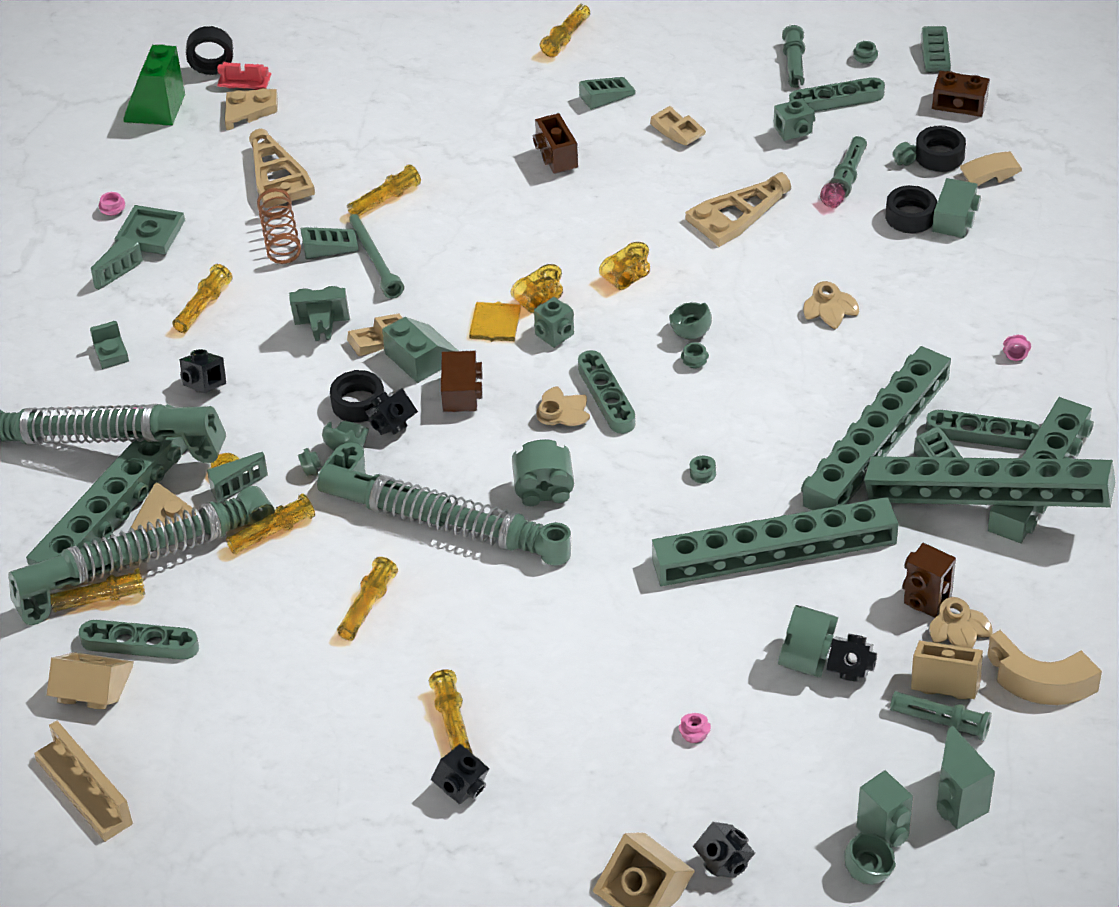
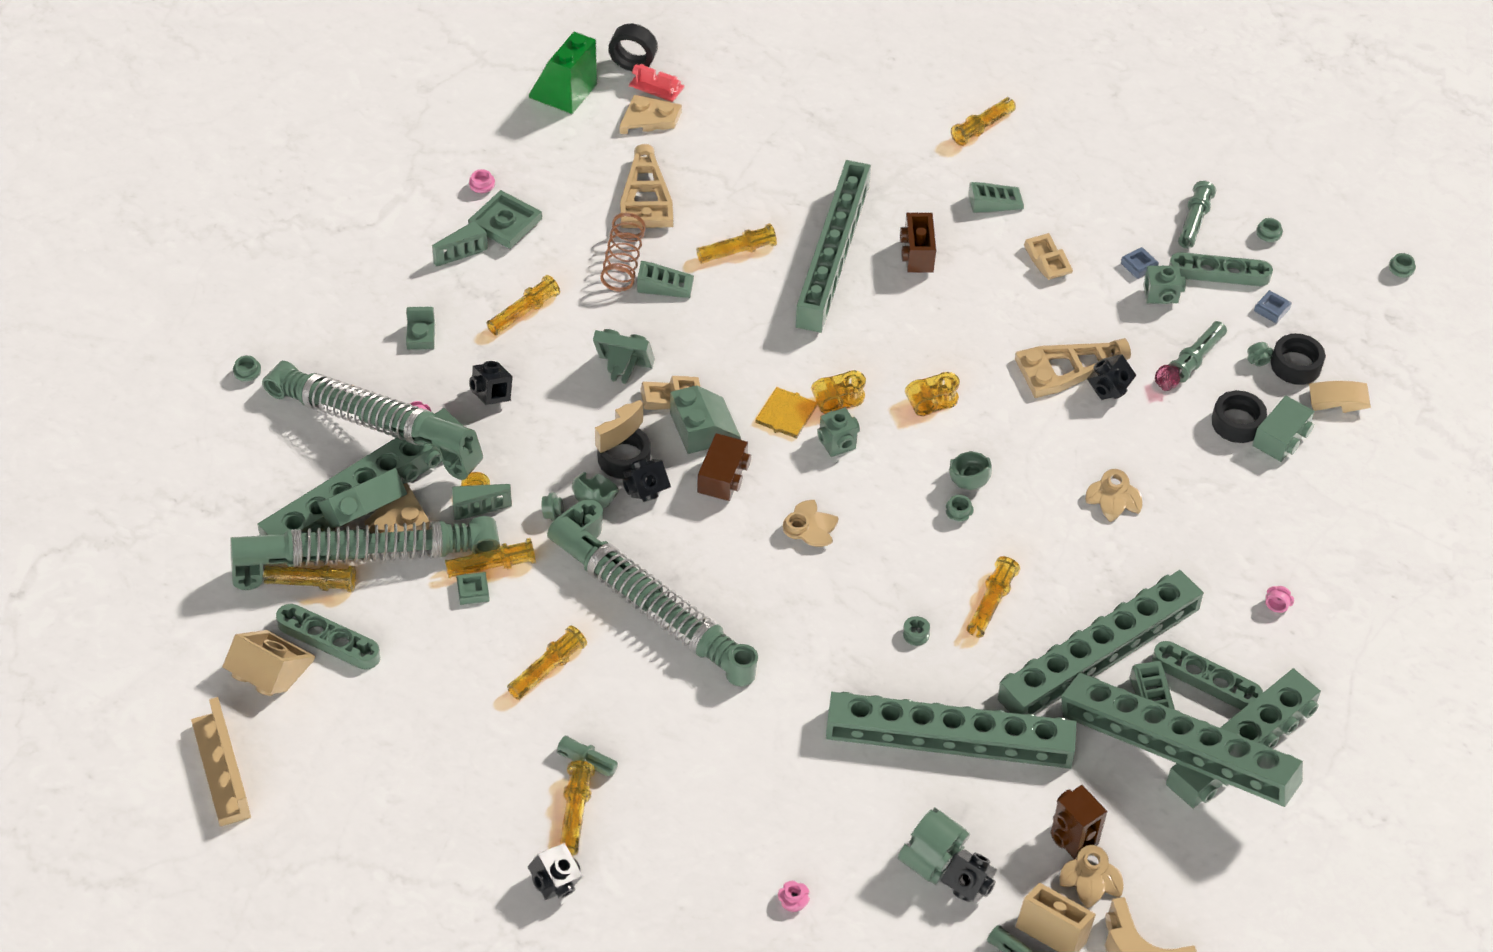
camera: 15 degrees right, 5 degrees up
(122, 505) = (362, 498): none -> sand green slope
(263, 556) = (472, 588): none -> sand green tile
(351, 367) = (626, 422): none -> tan slope
(390, 283) = (702, 344): sand green piece -> none
(428, 665) = (579, 752): none -> sand green axle
(477, 168) = (833, 246): none -> sand green brick
(542, 472) = (759, 588): sand green brick -> none
(603, 392) = (859, 519): sand green beam -> none
(760, 109) = (1137, 262): none -> sand blue tile
(760, 410) = (996, 587): none -> clear yellow pin
(783, 207) = (1111, 377): none -> black brick
(897, 113) = (1272, 306): none -> sand blue tile
(935, 47) = (1348, 236): sand green slope -> none
(960, 93) = (1344, 304): reddish brown brick -> none
(995, 49) = (1402, 265): none -> sand green plate

